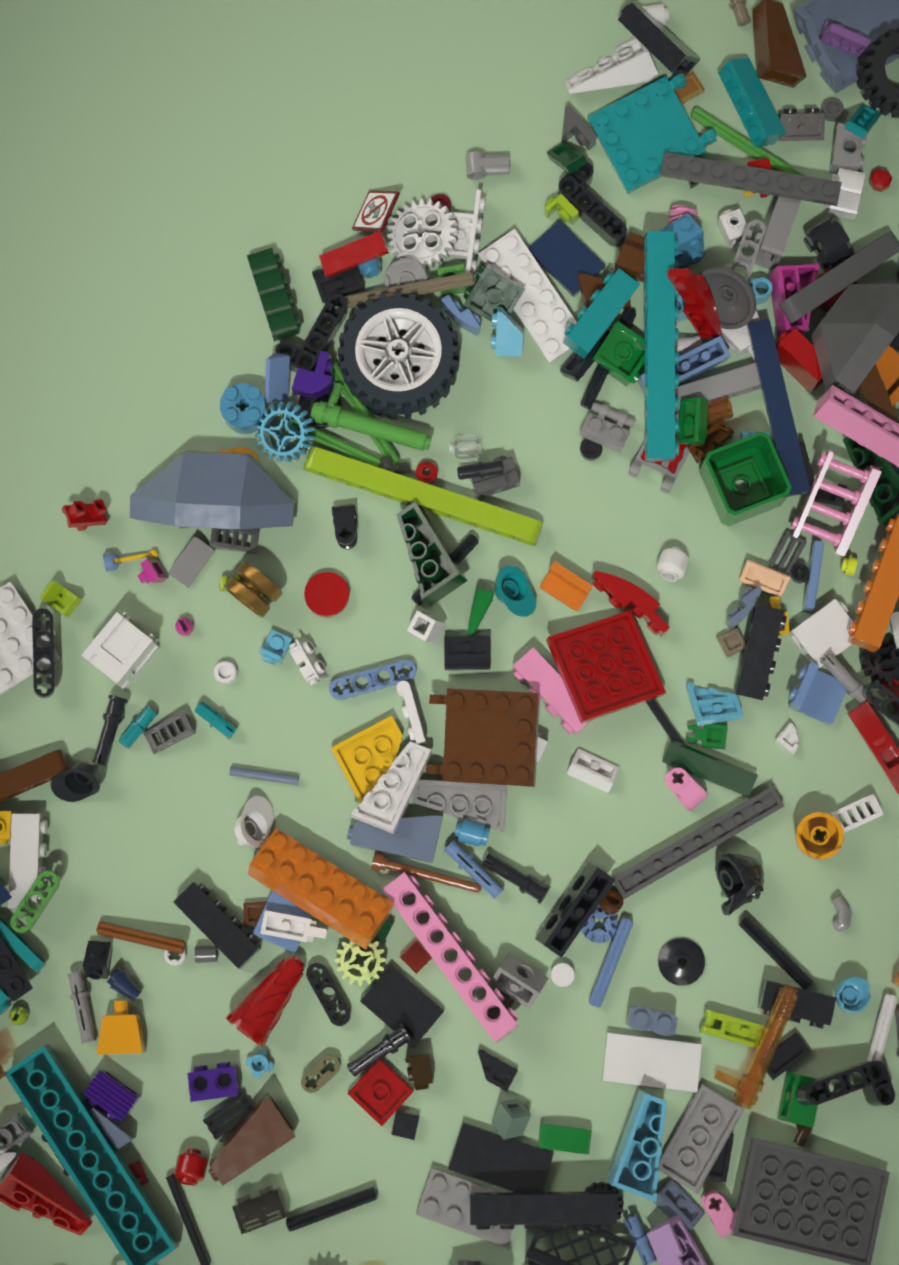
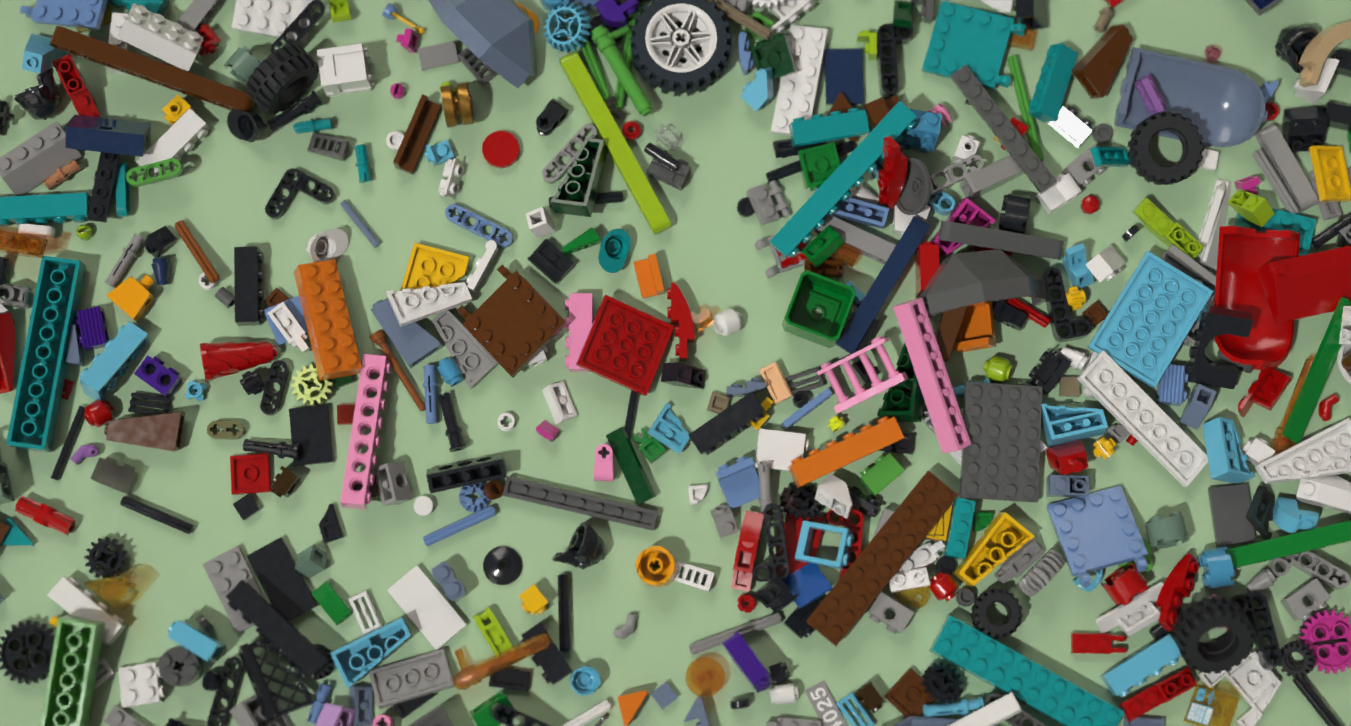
camera: 35 degrees right, 0 degrees up
(29, 729) = (242, 64): none -> sand green brick
(74, 709) = (282, 78): none -> black tyre
(160, 1107) = (113, 361): none -> medium azure wedge
(176, 792) = (299, 185): none -> black beam
(210, 1213) = (85, 451): none -> medium lavender arm
(241, 649) = (417, 135): none -> reddish brown fence
(304, 1009) = (252, 382): none -> black gear
(391, 542) = (568, 152): none -> light grey beam
(556, 832) = (501, 419): none -> white bush
(582, 1111) = (358, 597): none -> white tile
(607, 805) = (547, 430): none -> dark pink slope
(650, 580) = (703, 319): none -> clear orange tile
(679, 646) = (683, 375): none -> black slope
(740, 967) = (533, 601): none -> yellow brick
(835, 740) = (724, 520): none -> light grey bracket

